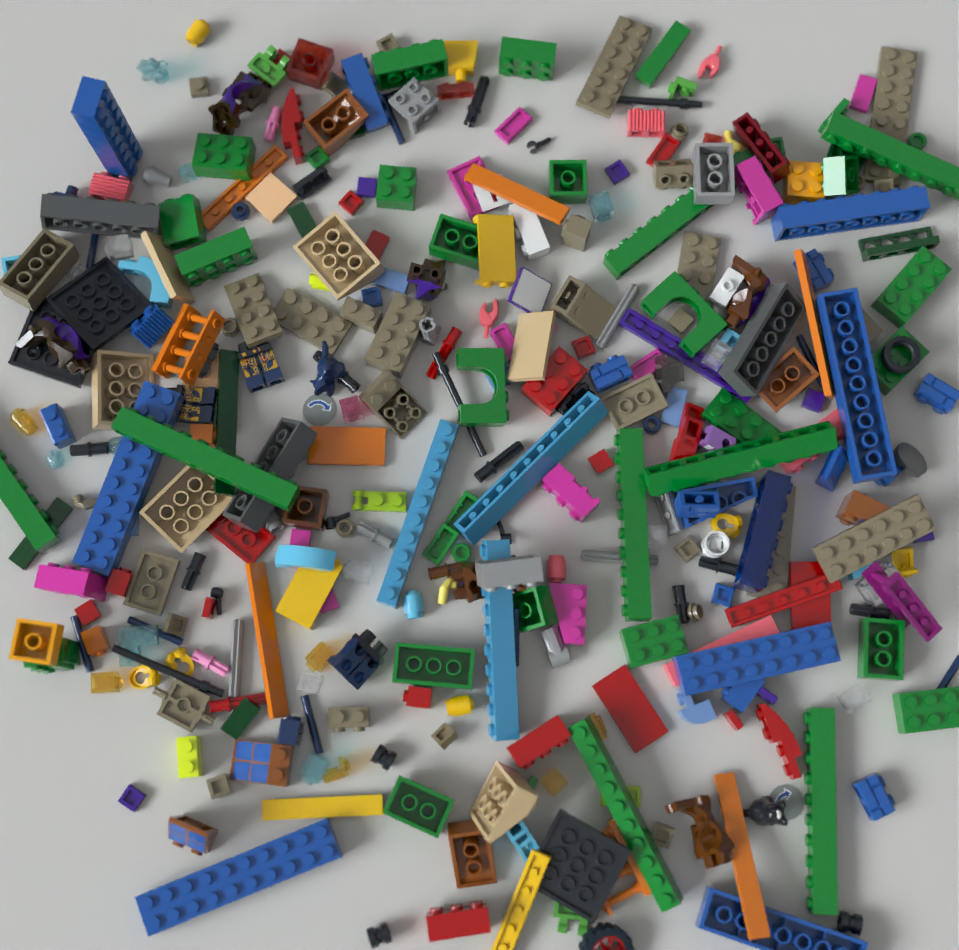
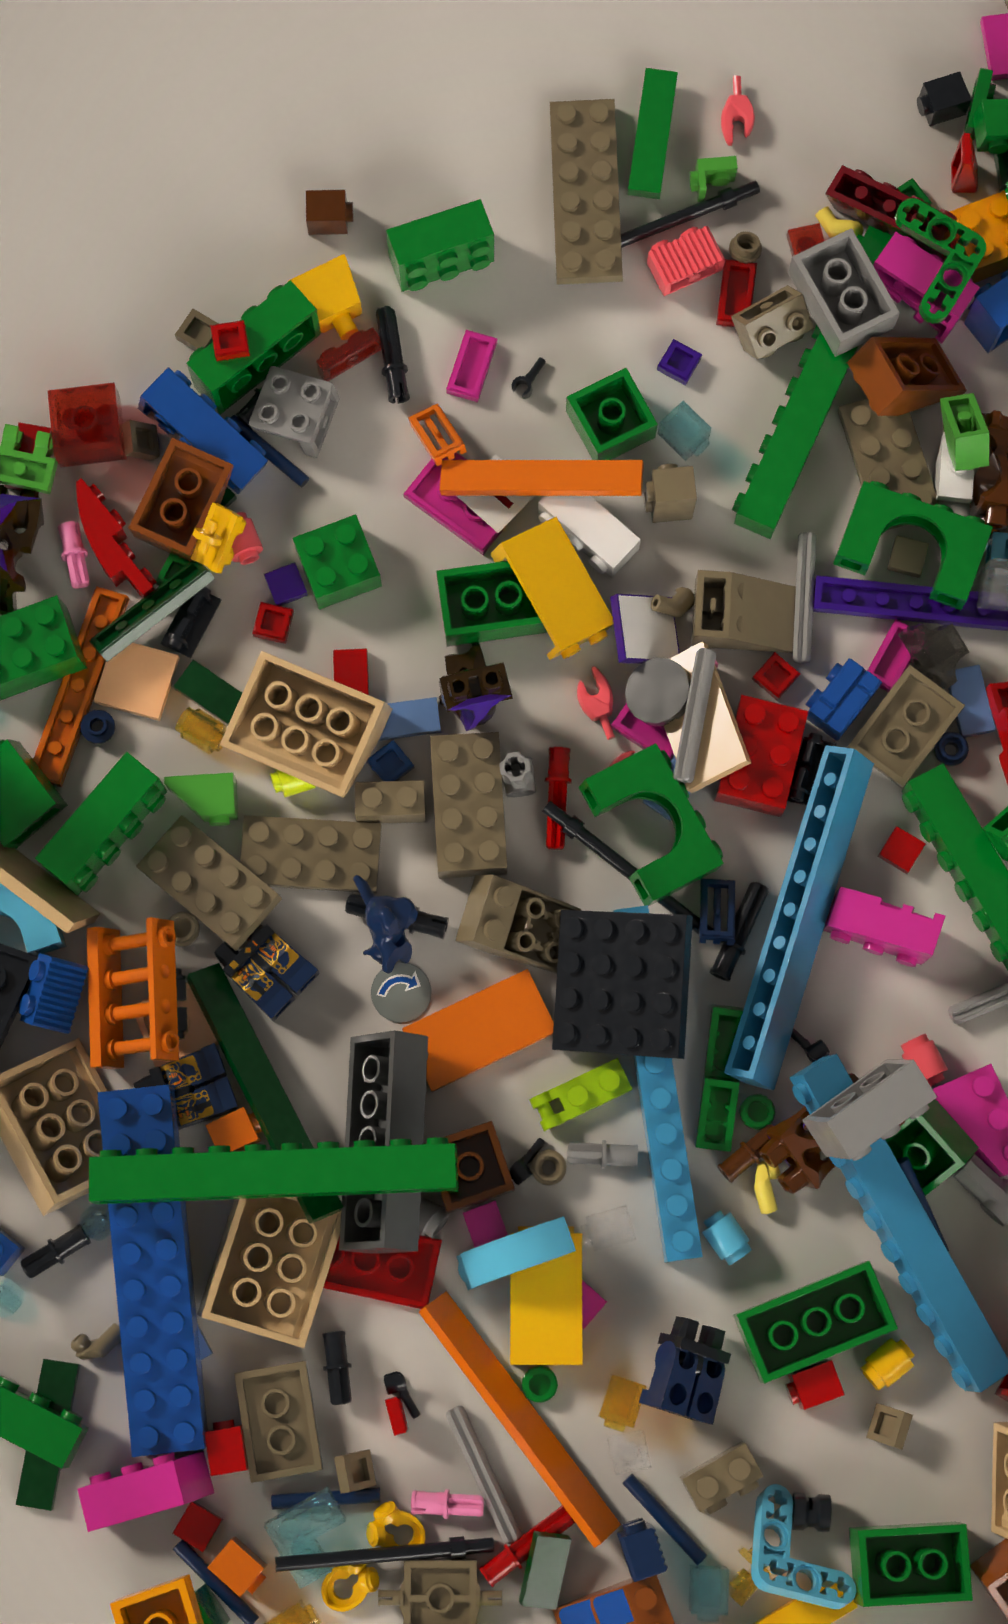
camera: 25 degrees left, 0 degrees up
(276, 269) = (207, 795): none -> bright green slope
(286, 629) = (539, 1384): none -> green tile
(288, 236) = (201, 730): none -> clear yellow brick
(294, 167) = (151, 610): none -> dark green tile
(342, 146) = (217, 537): none -> yellow hips
(351, 409) = (456, 966): clear pink brick -> none
(354, 771) = (780, 1562): none -> medium azure beam
(356, 154) = (247, 545): none -> coral brick
(397, 53) = (230, 340): none -> red tile
(425, 455) = (622, 983): none -> black plate
(478, 158) = (446, 450): none -> orange tile
(481, 17) = (328, 212): none -> reddish brown brick
(485, 456) = (717, 935): none -> dark blue tile
(519, 325) = (658, 691): none -> dark grey tile
(529, 344) = (694, 715): none -> light grey axle
(552, 288) = (674, 606): none -> dark tan arm
(725, 229) = (904, 374): none -> dark orange slope
(737, 270) = (965, 432): none -> bright green slope
(776, 182) = (955, 259): none -> green beam
(812, 143) = (964, 167): none -> red slope
(818, 105) = (944, 99): none -> black brick

